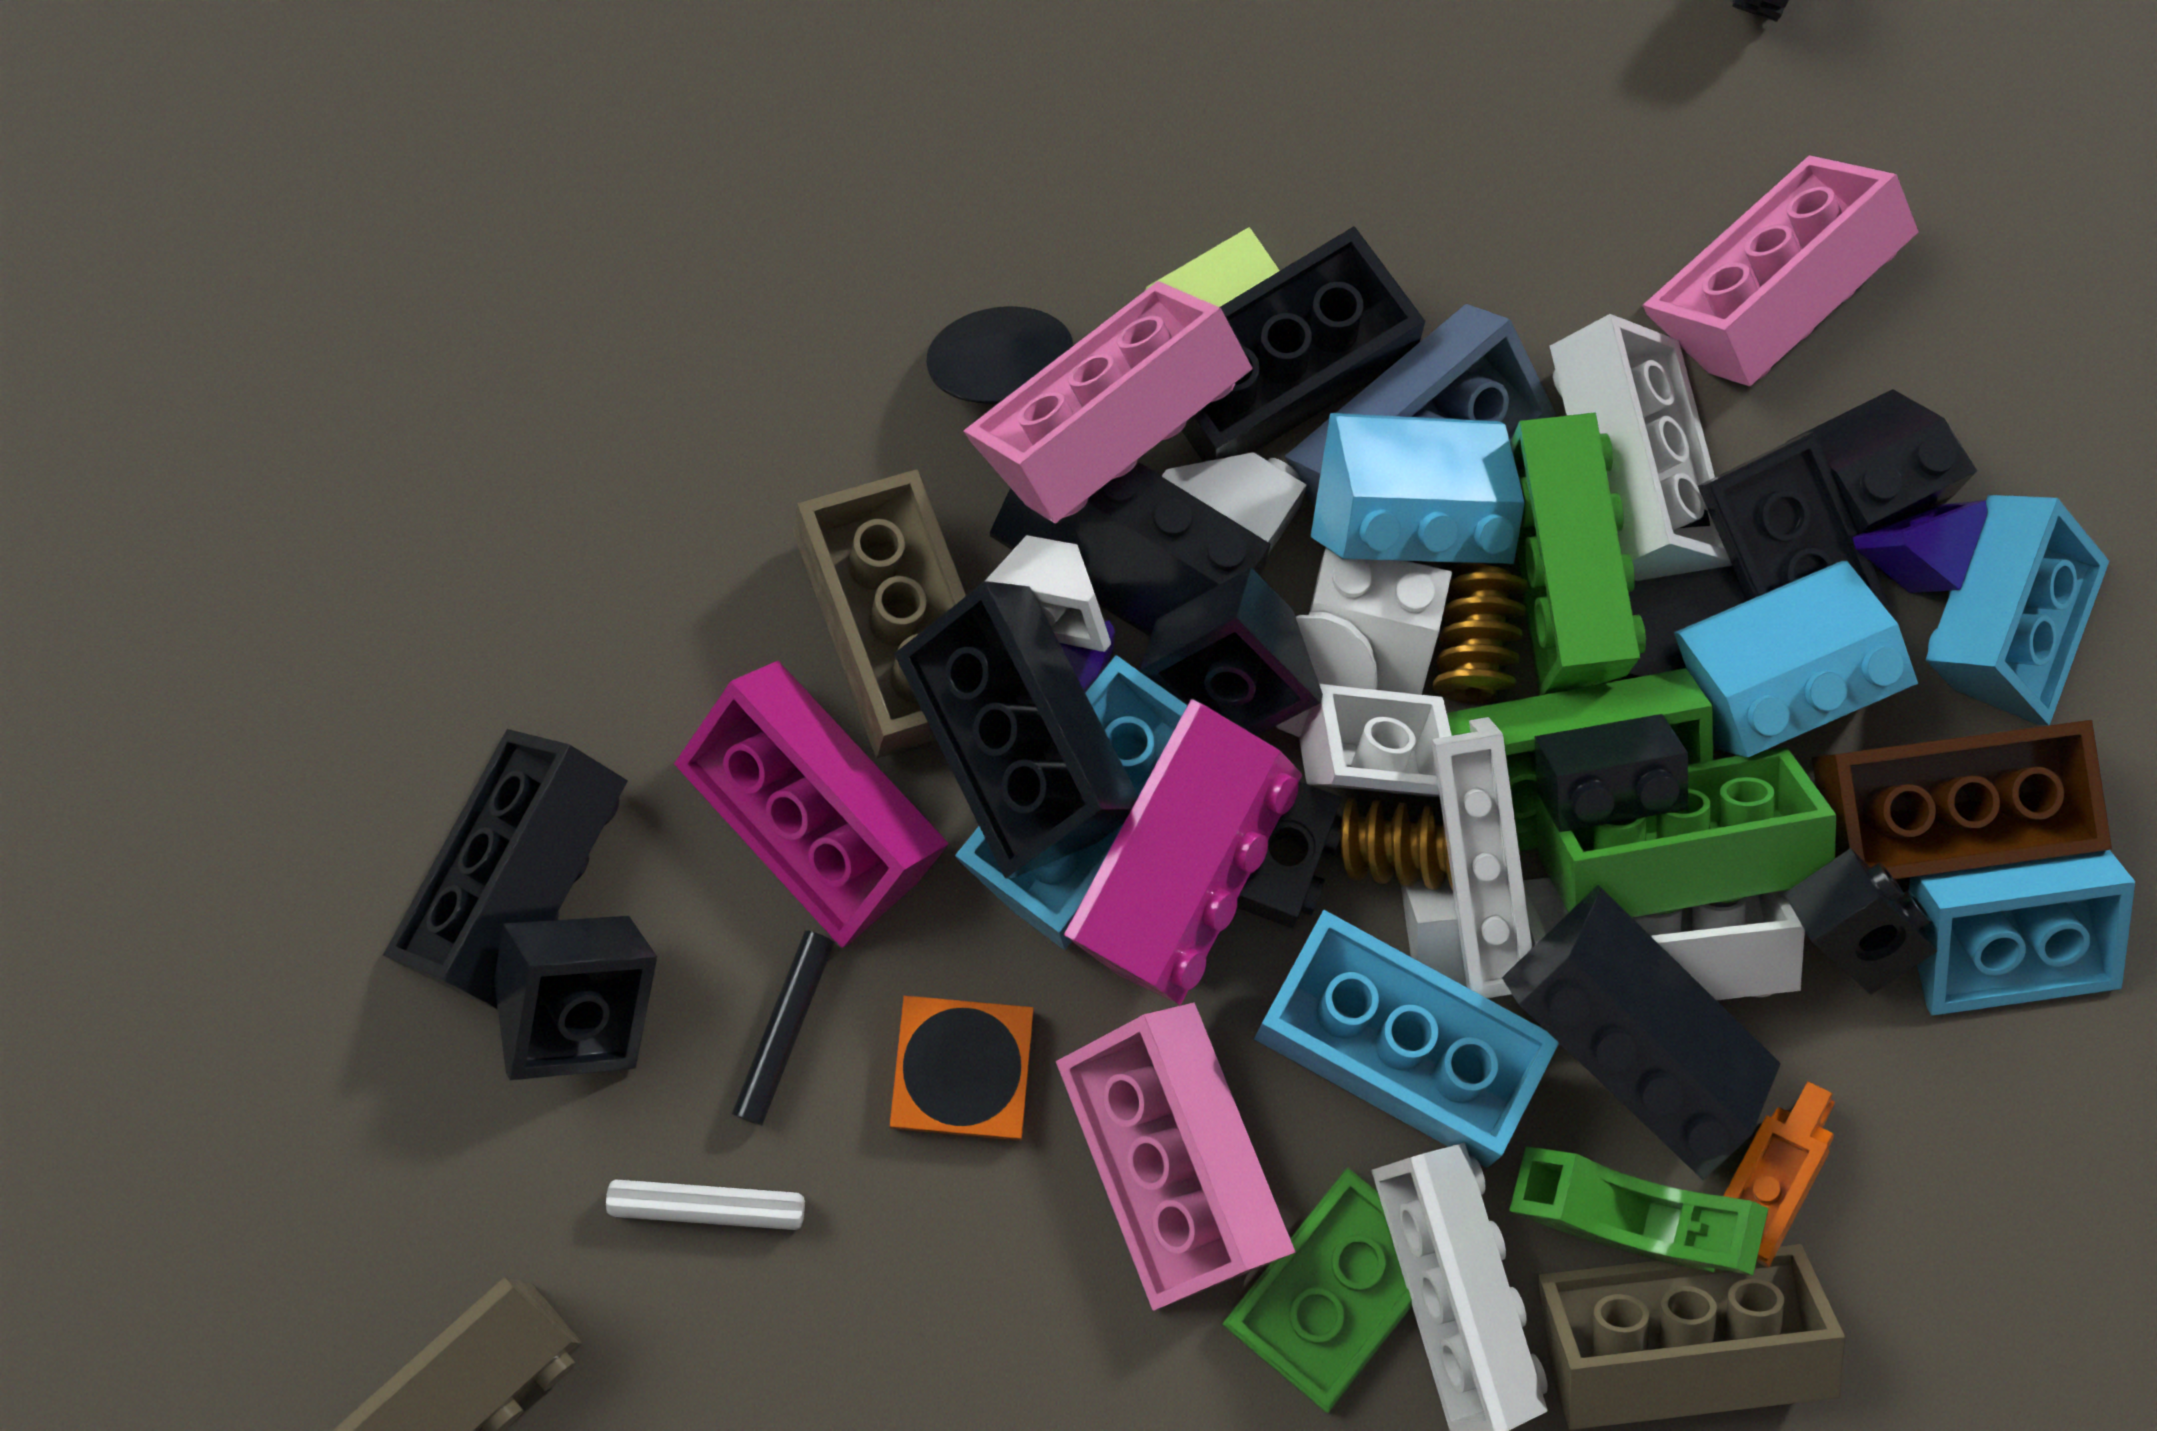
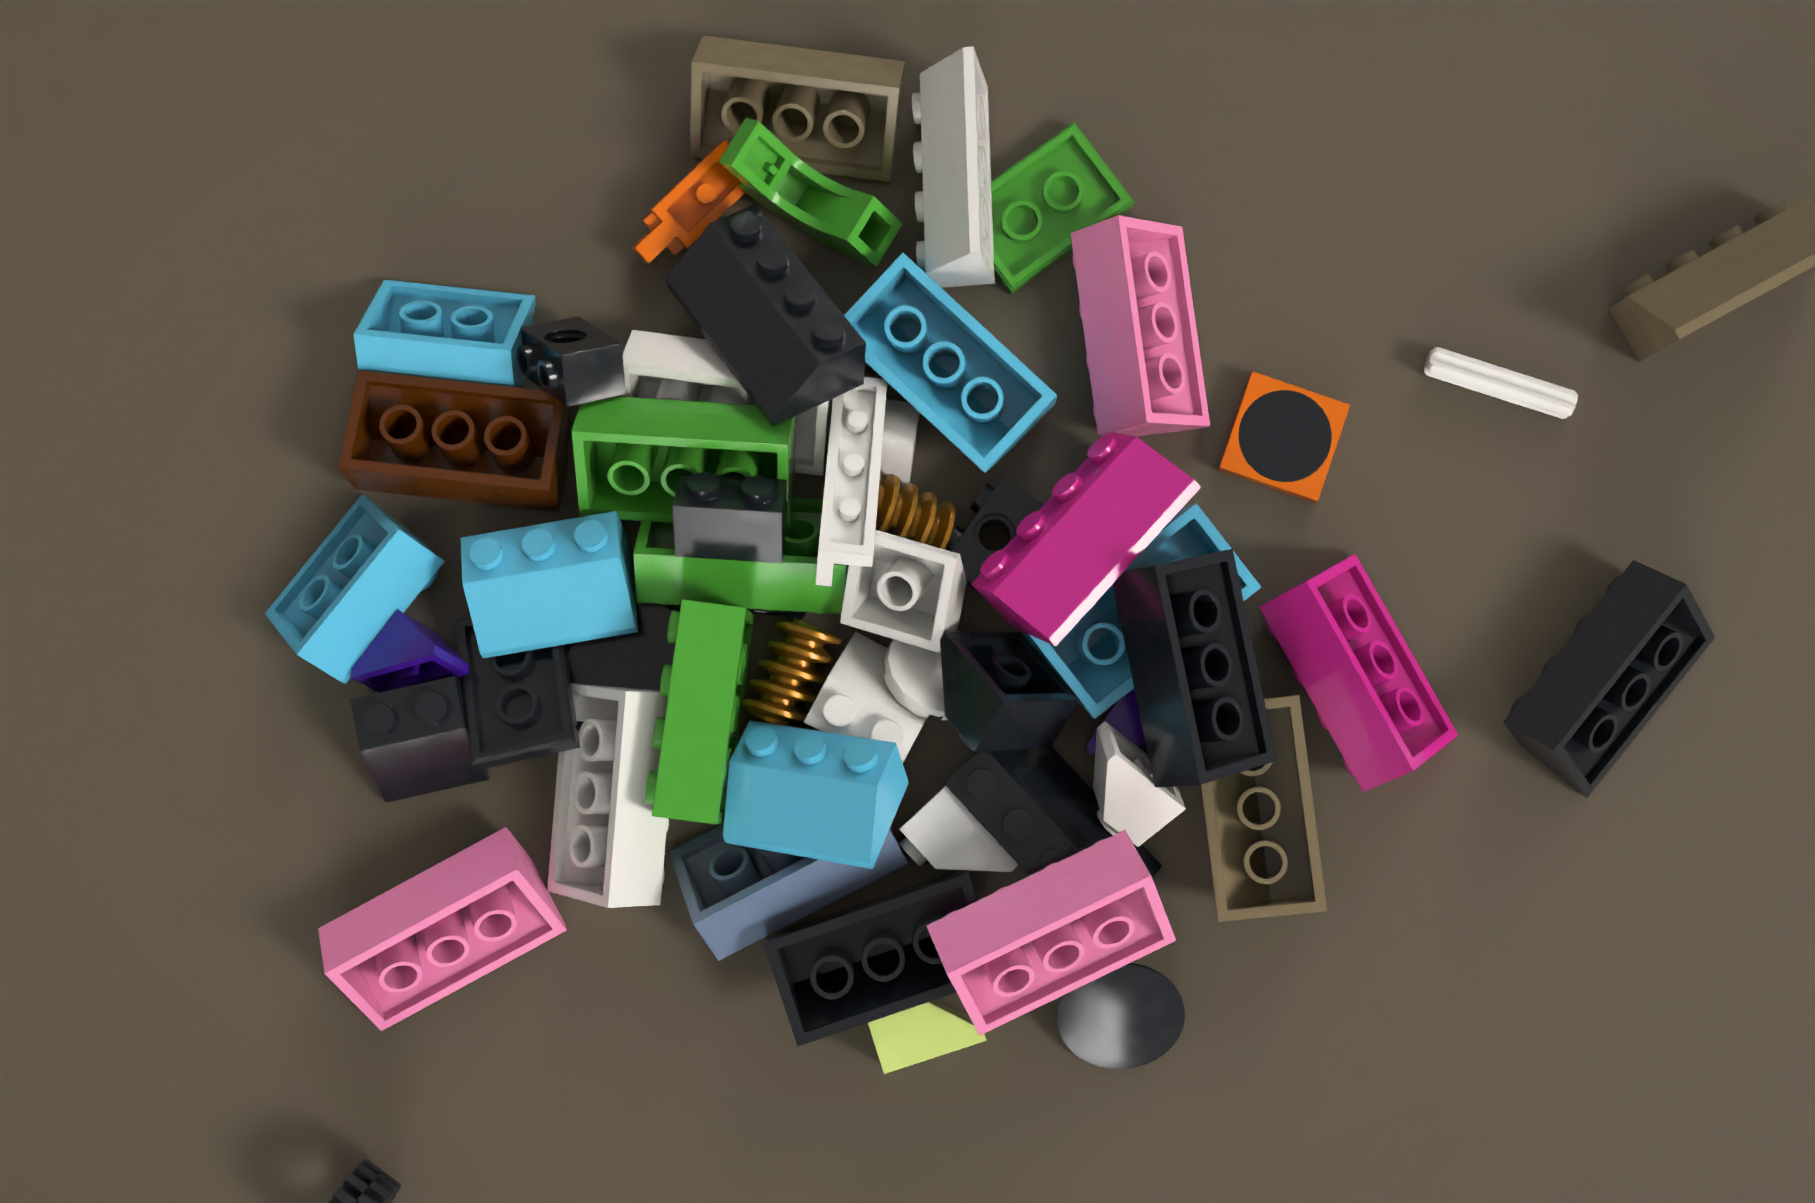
camera: 160 degrees left, 10 degrees up
(572, 995) = (1580, 558): black slope -> none
(783, 1028) = (1414, 501): black piece -> none

